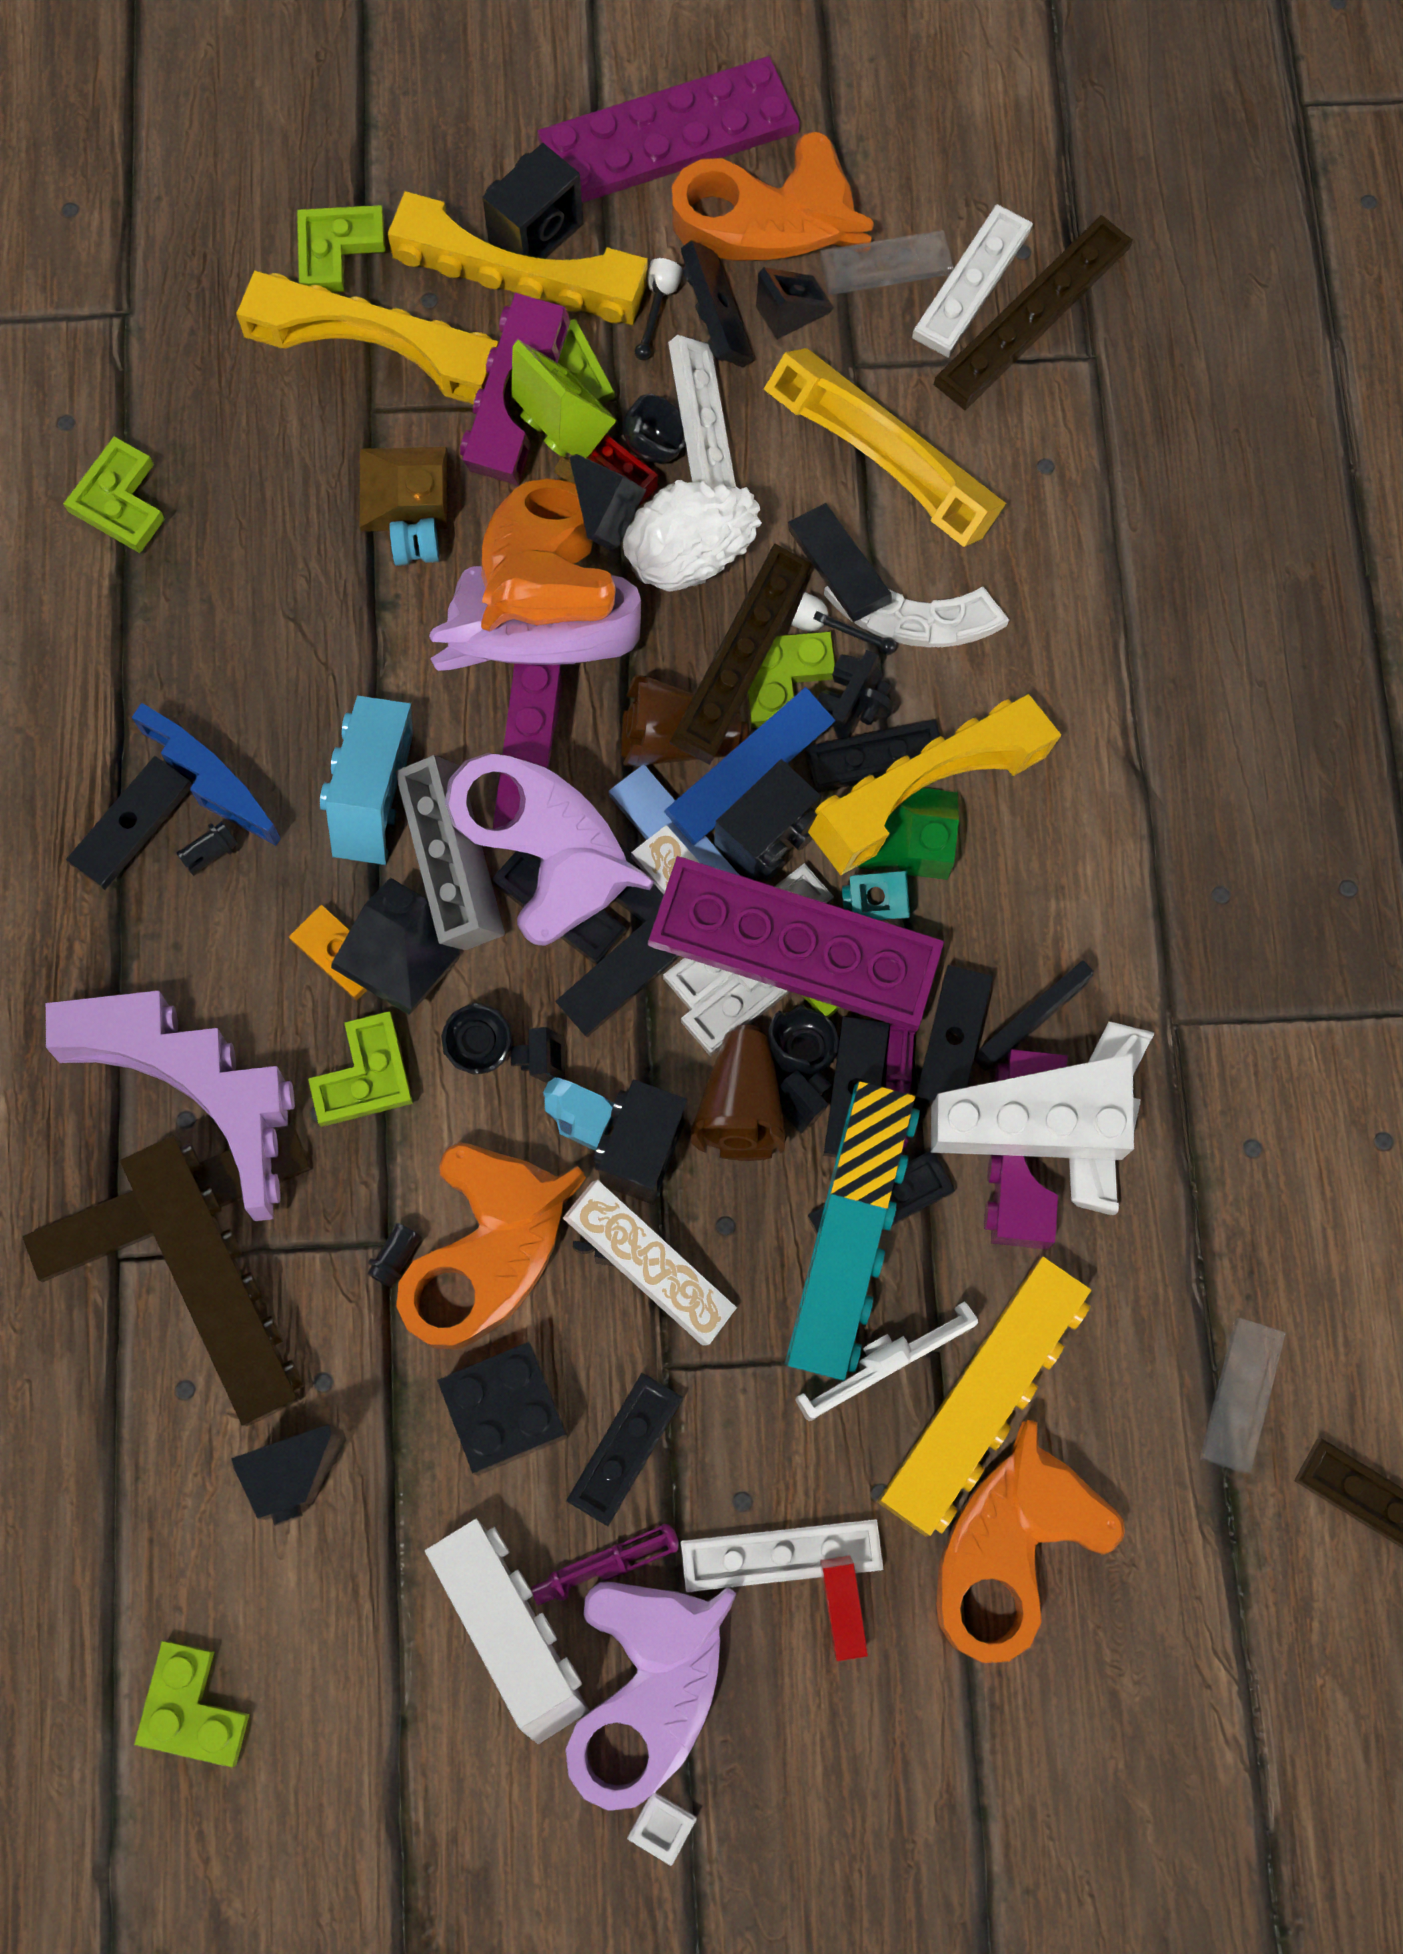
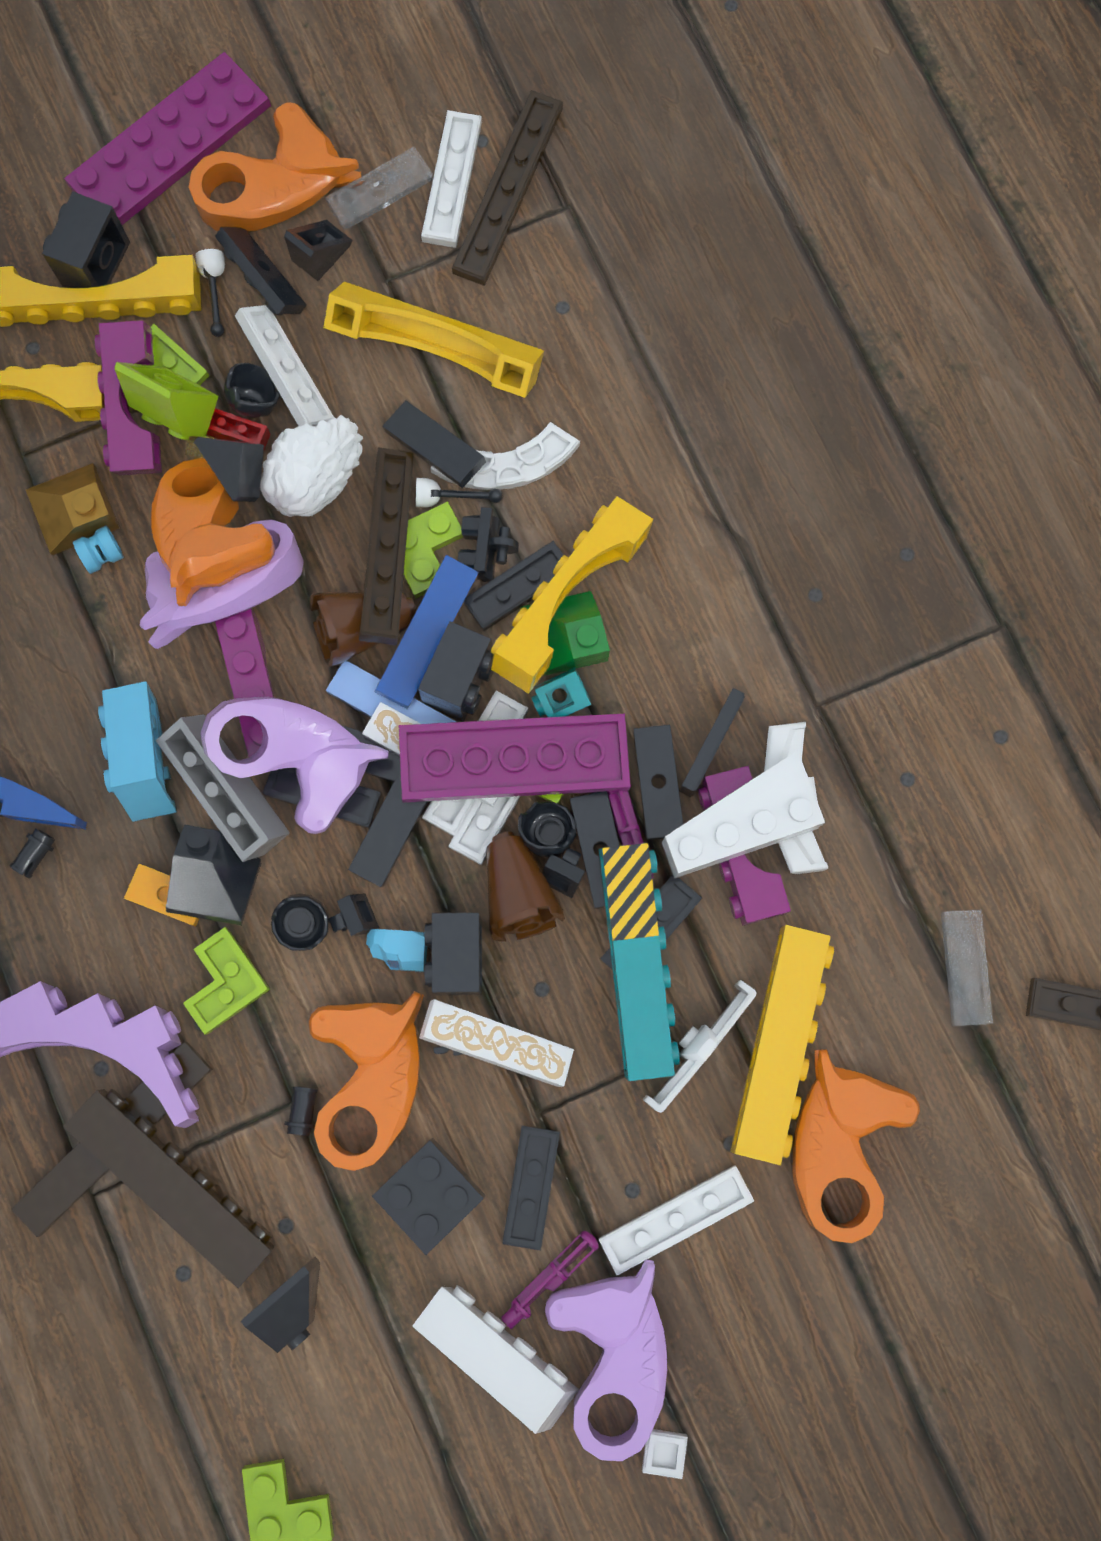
camera: 20 degrees left, 5 degrees up
(843, 1608) = (736, 1241): red piece -> none

